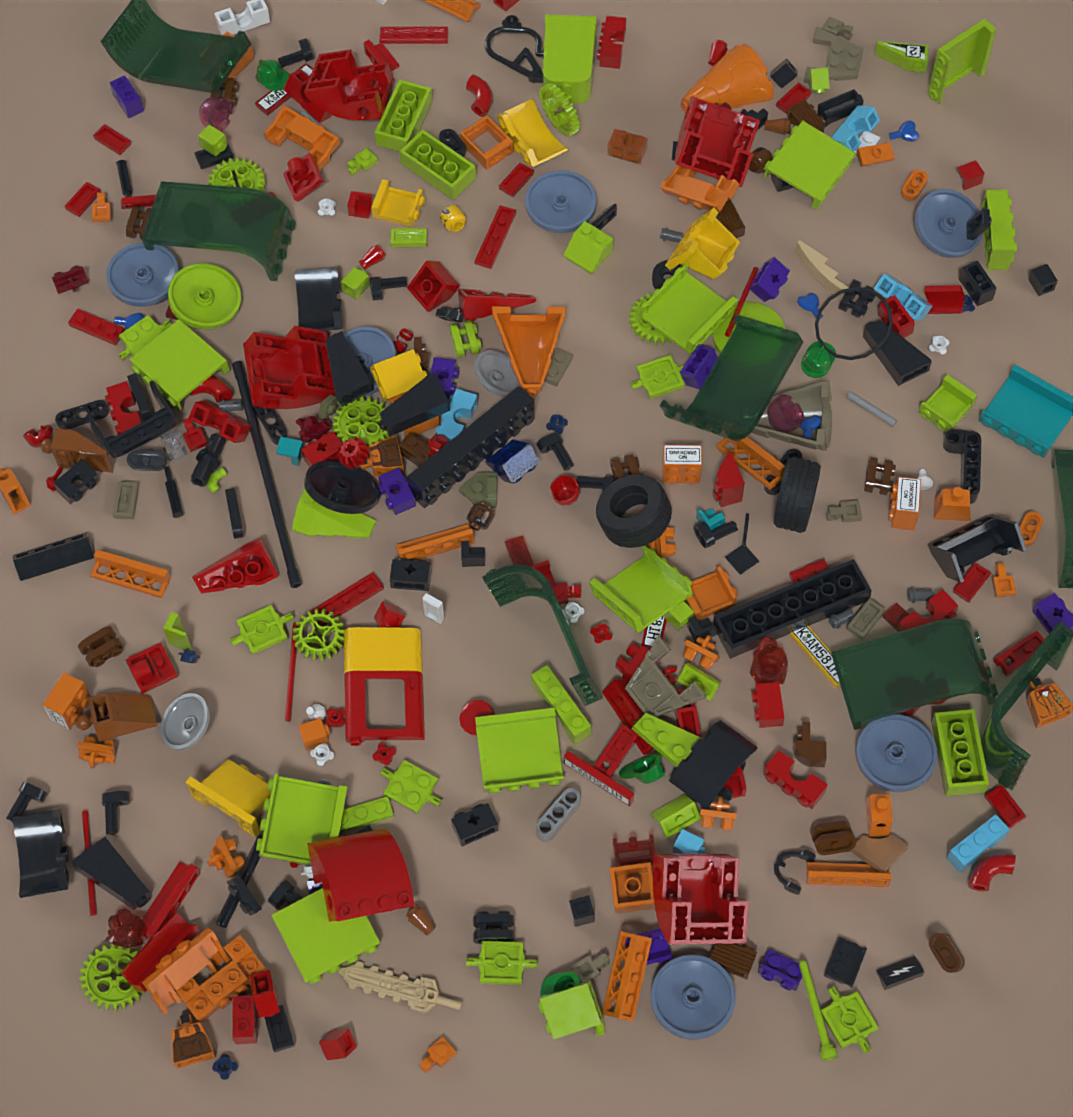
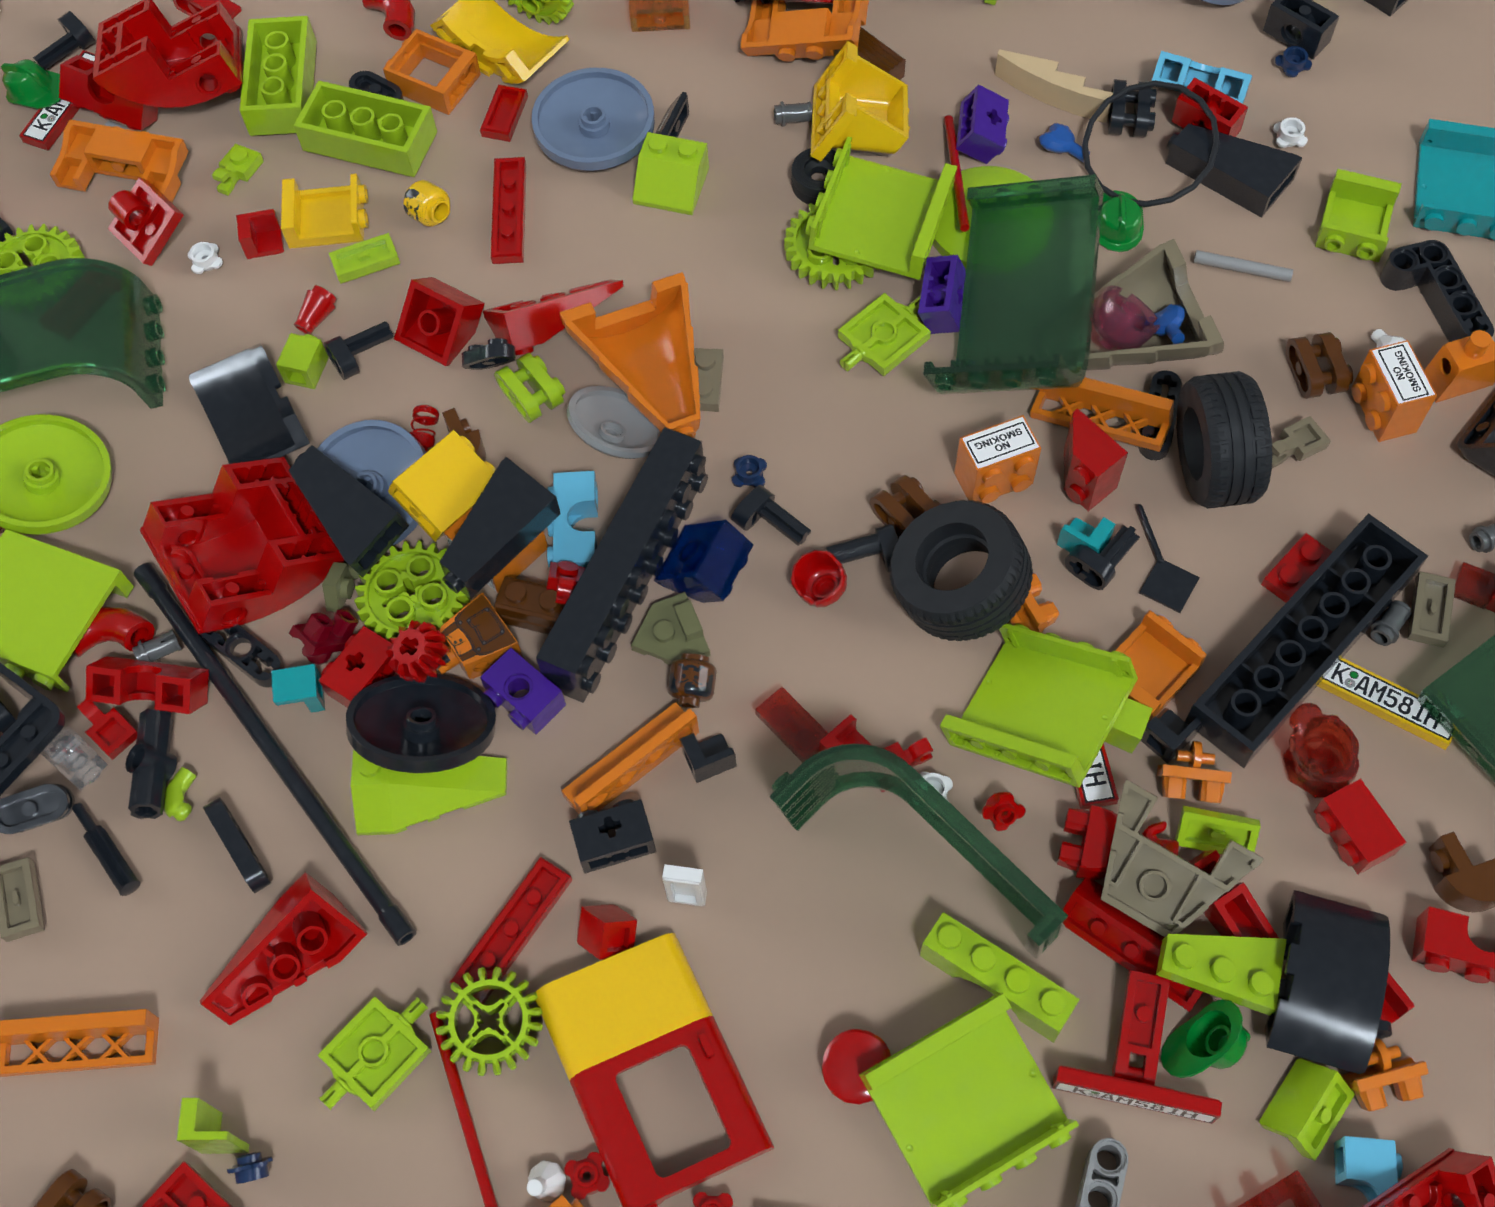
camera: 20 degrees left, 0 degrees up
(445, 369) = (522, 449): dark purple brick -> none
(945, 299) = (1267, 60): red panel -> none

